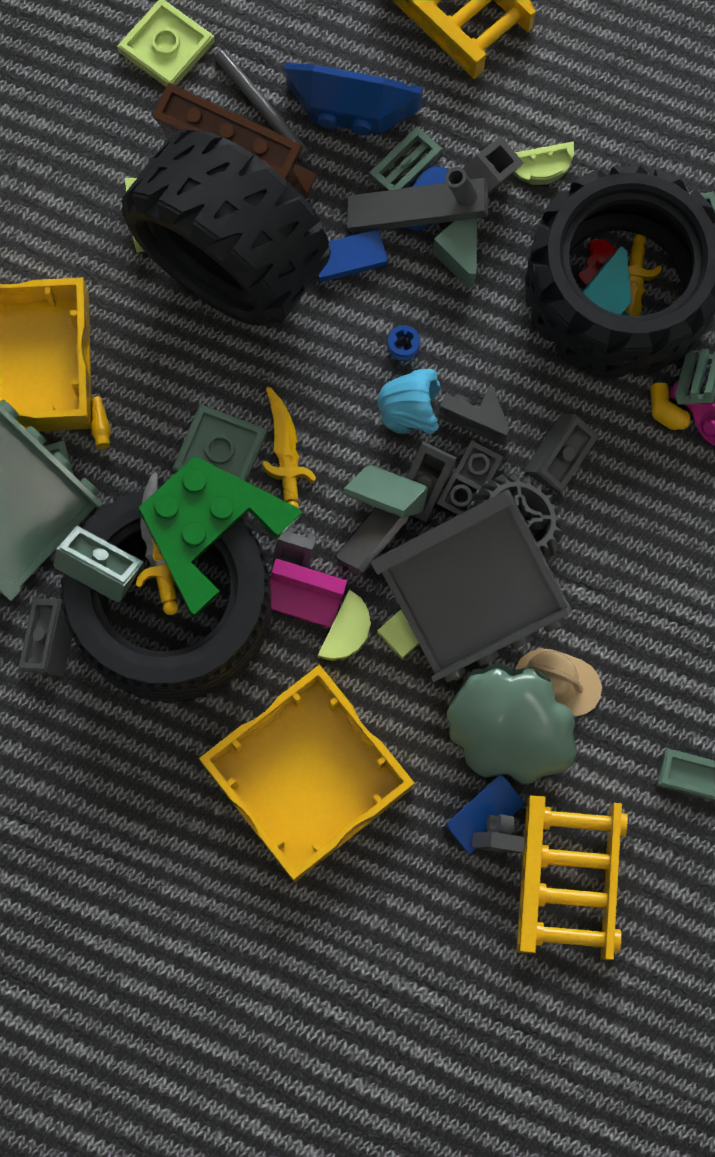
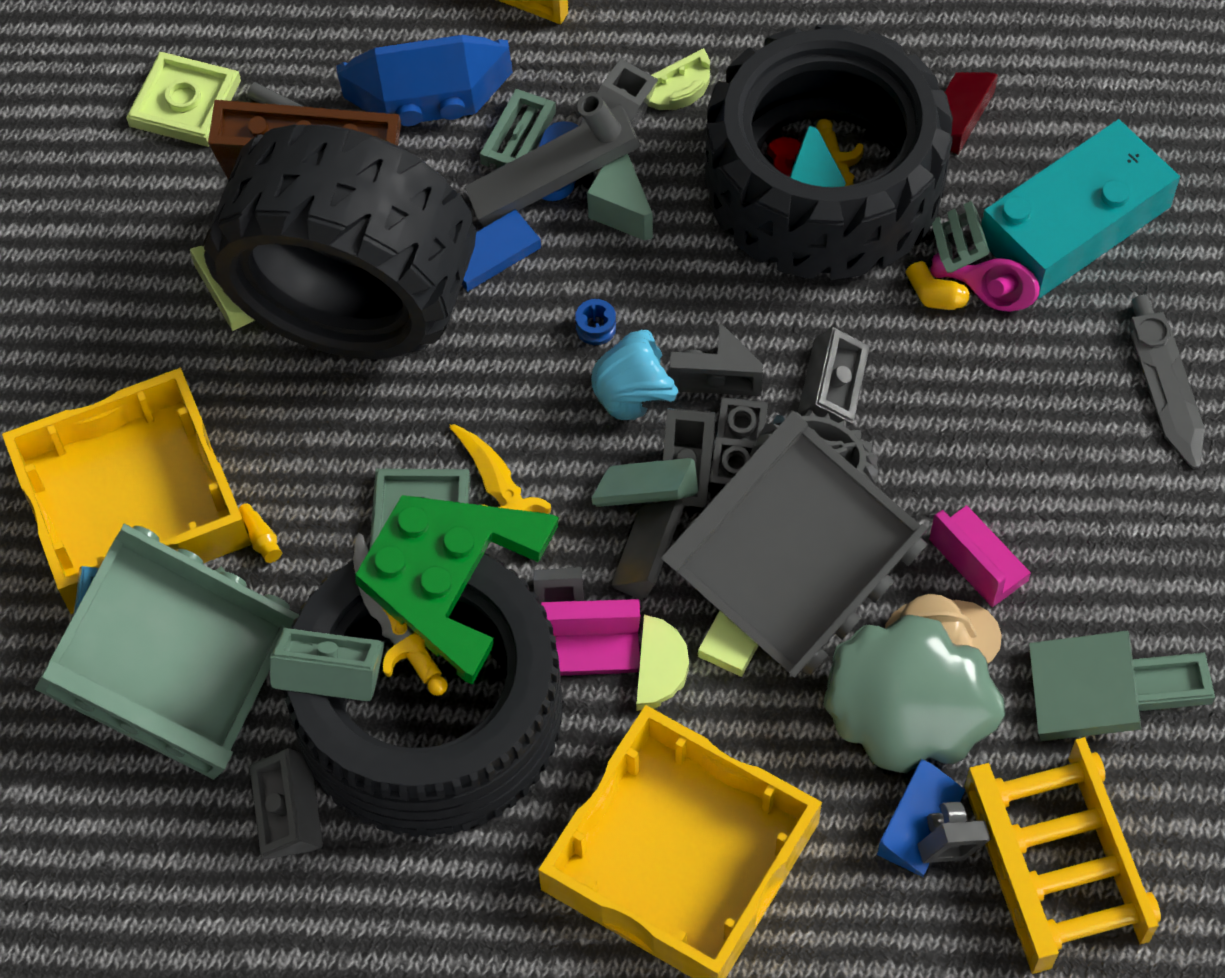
camera: 15 degrees left, 15 degrees down
(609, 631) = (978, 554): none -> dark pink panel
(641, 760) = (1084, 686): none -> sand green tile

